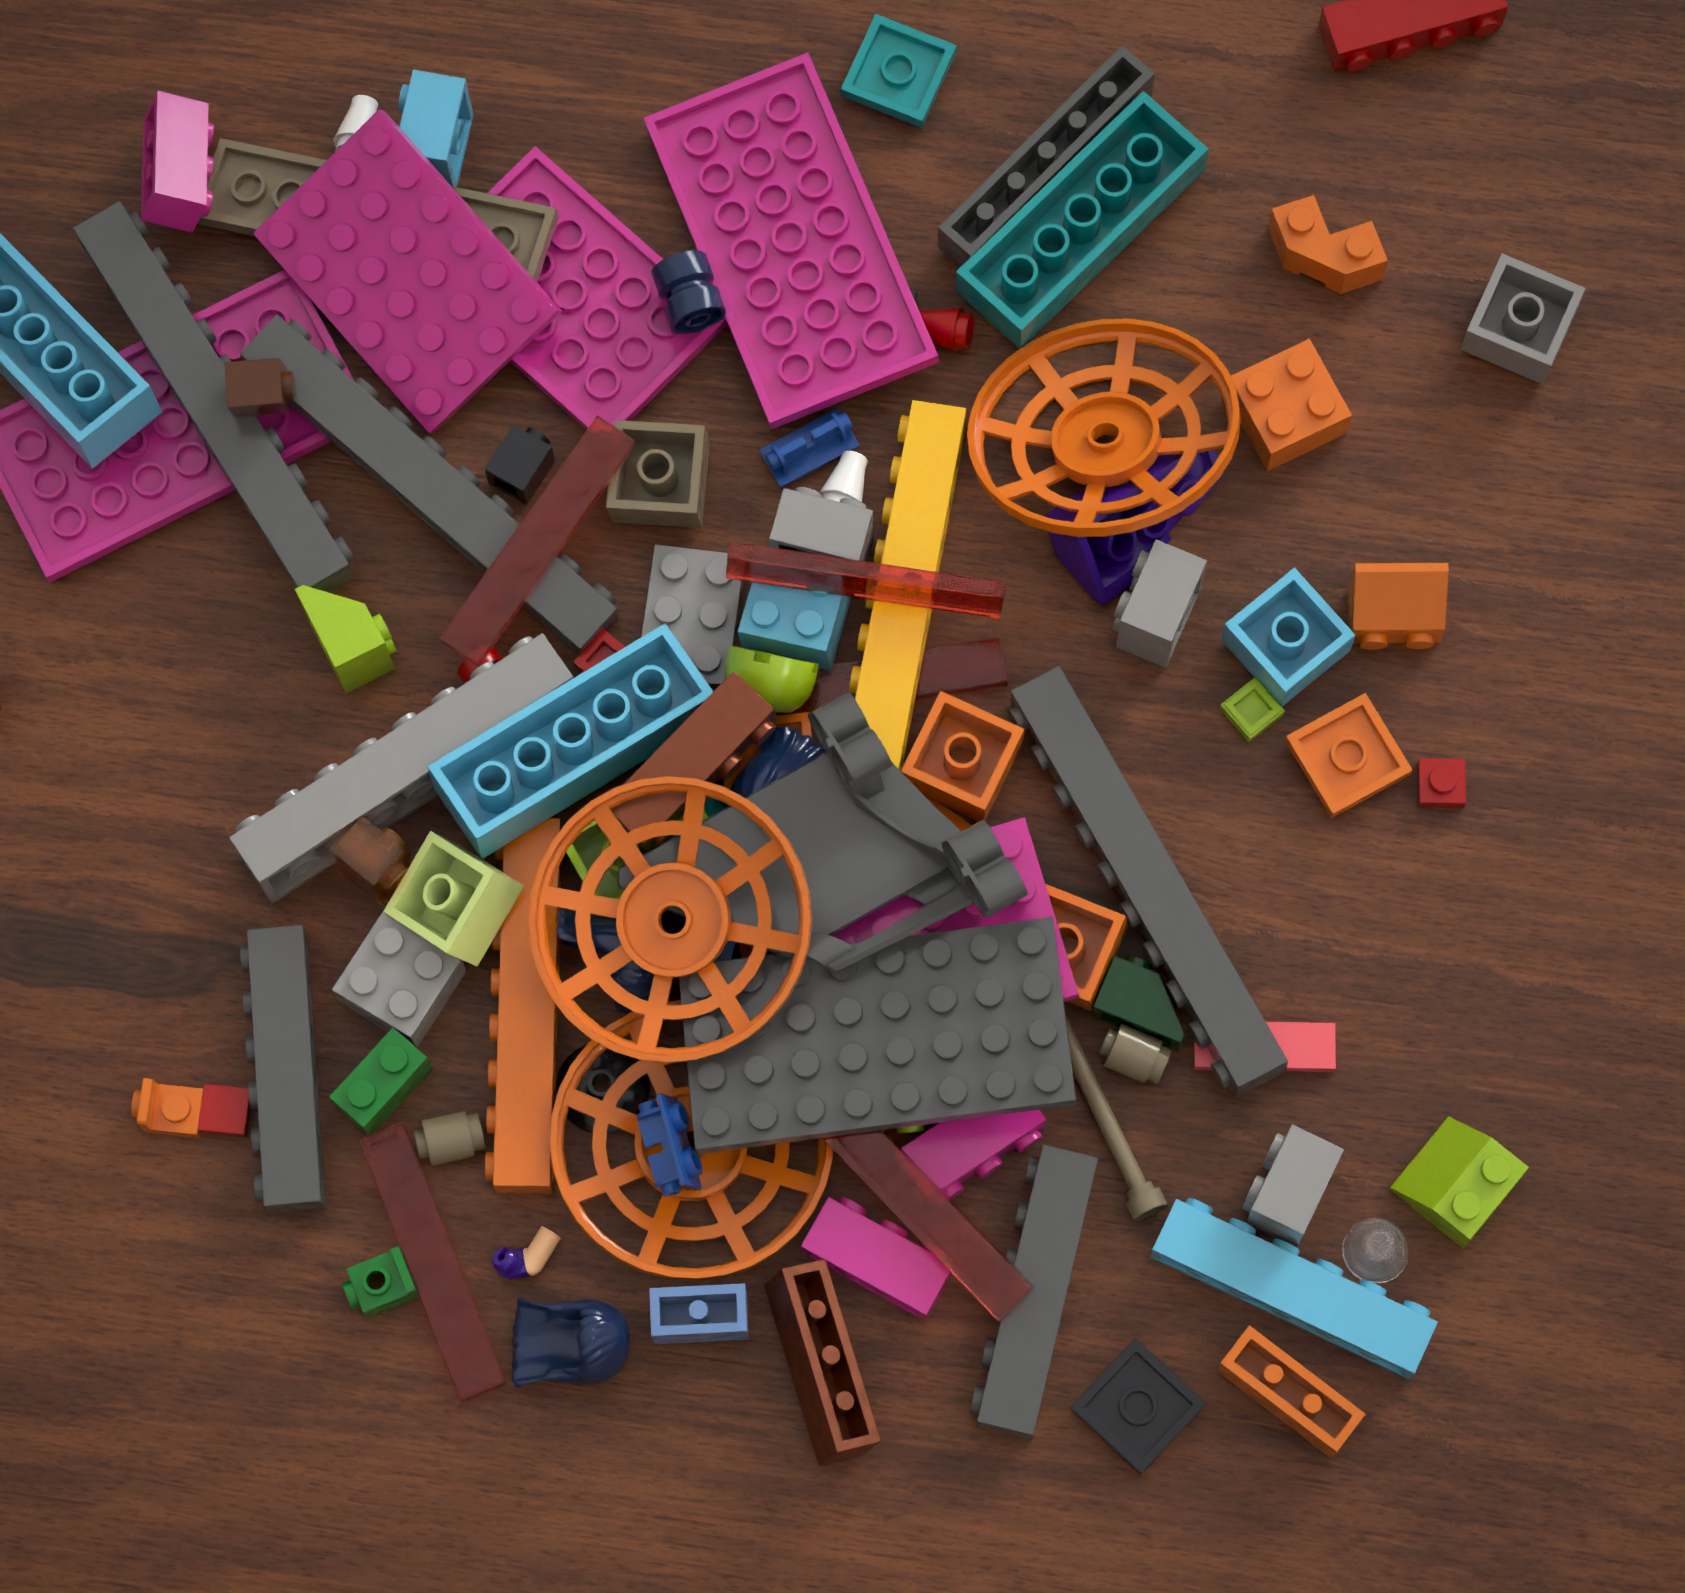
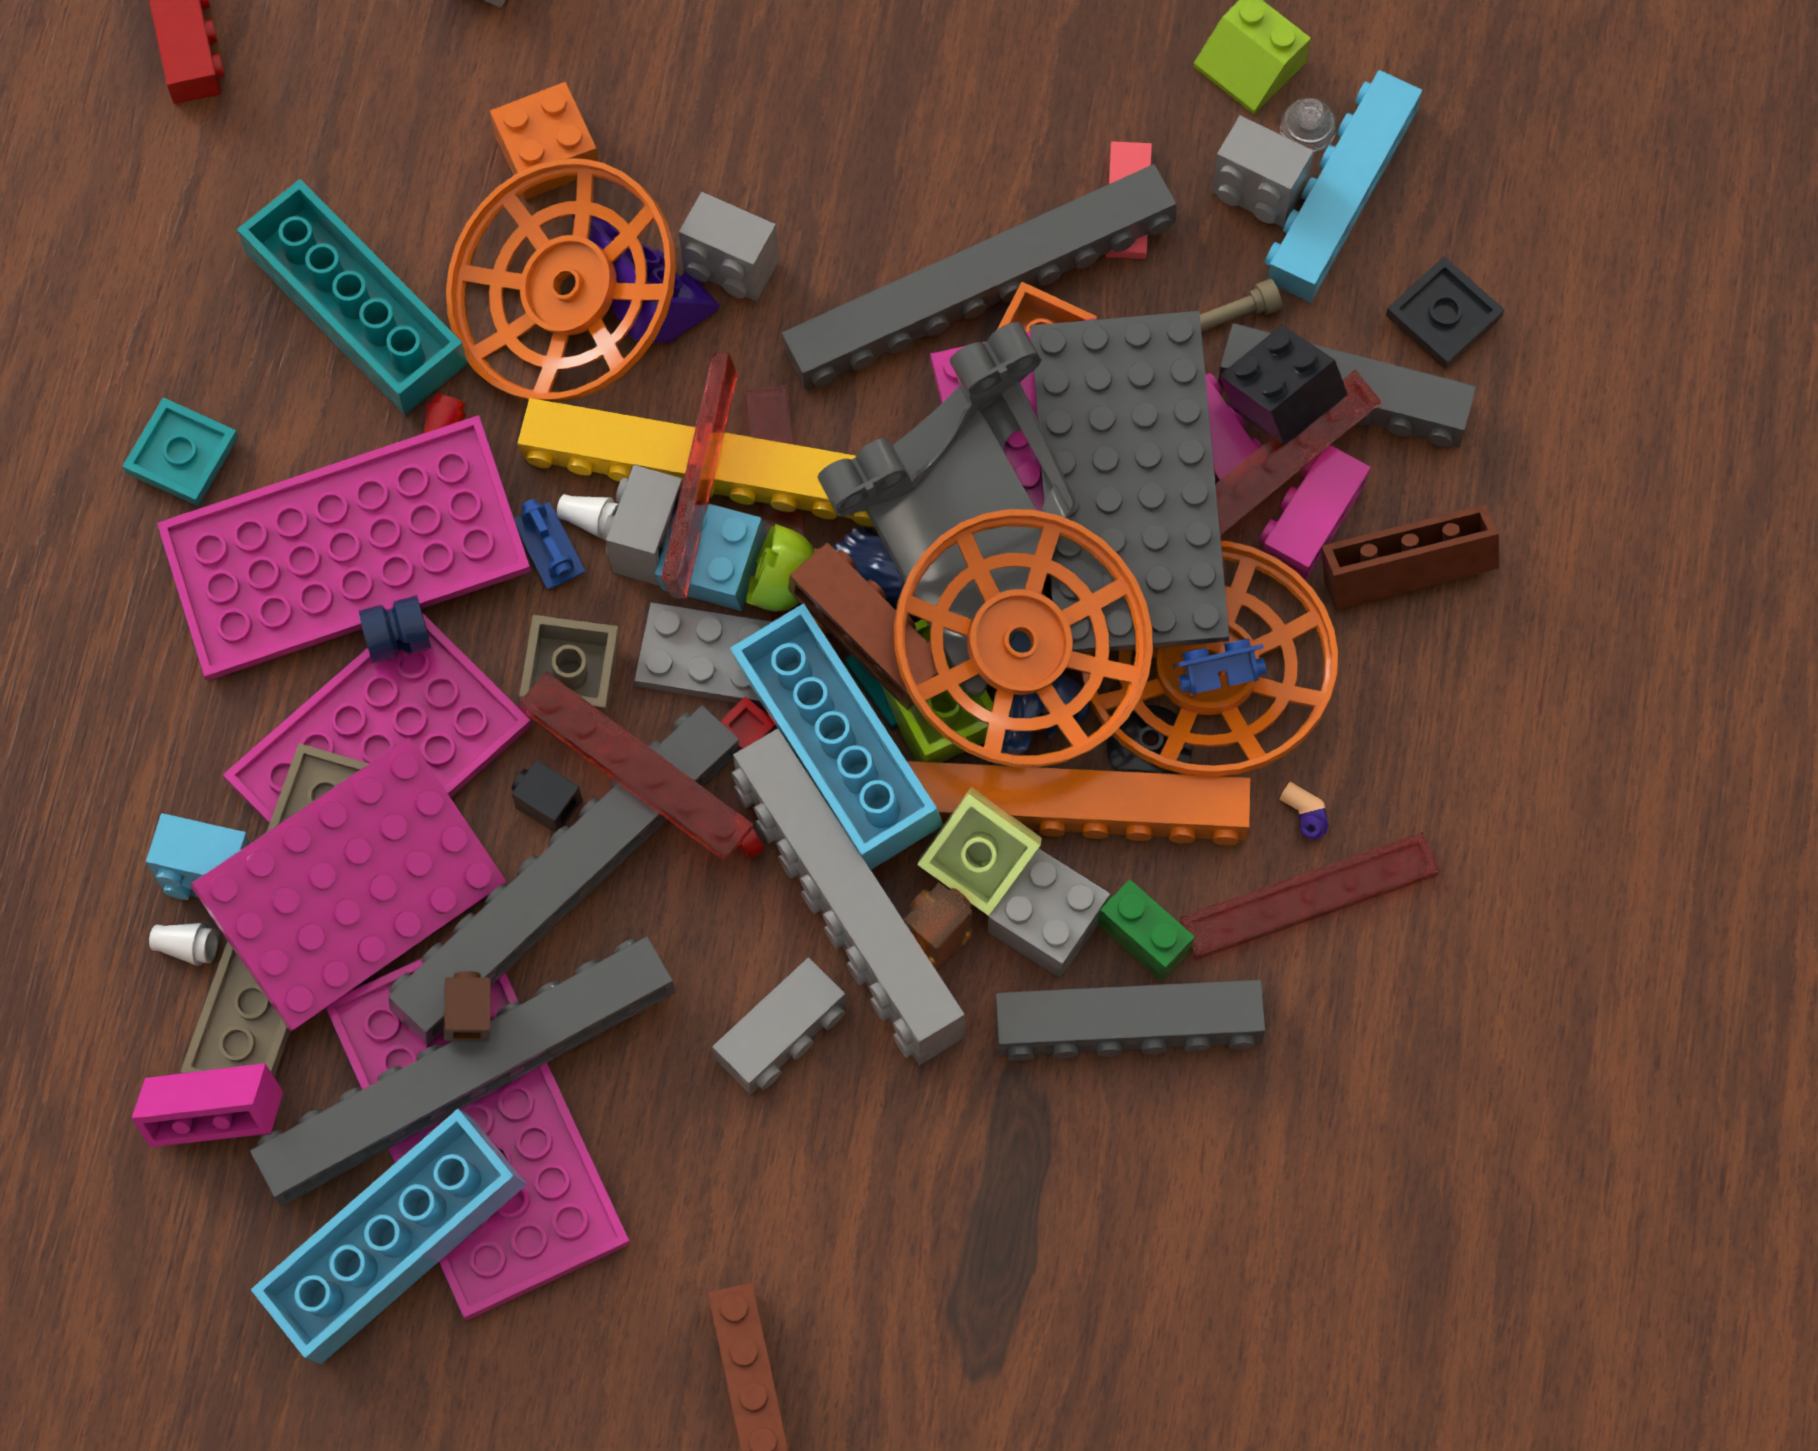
camera: 90 degrees left, 5 degrees down
(167, 1109) = (1163, 1128): orange bracket -> none
(224, 1110) = (1164, 1079): red tile -> none
(272, 713) = (780, 1027): none -> light grey brick
(349, 635) = (713, 950): lime slope -> none
(398, 1285) = (1329, 952): green brick -> none
(449, 1138) = (1197, 873): dark tan brick -> none
(568, 1342) = (1391, 771): dark blue piece -> none
(699, 1313) = (1366, 657): medium blue brick -> none
(963, 756) = (858, 410): orange brick -> none
(1001, 1203) = (1283, 385): none -> black brick
(1044, 154) = (290, 323): dark grey brick -> none
(1134, 1054) = (1136, 293): dark tan brick -> none
(1139, 1000) = (1094, 283): dark green slope -> none
(1252, 709) = (823, 192): lime tile -> none
(1288, 637) = (764, 150): medium azure brick -> none
(1290, 1392) = (1436, 187): orange brick -> none
(1337, 259) = (392, 115): orange brick -> none
(1348, 755) = (871, 116): orange plate -> none
(1397, 604) = (742, 63): orange slope -> none
(1441, 782) = (898, 48): red plate -> none

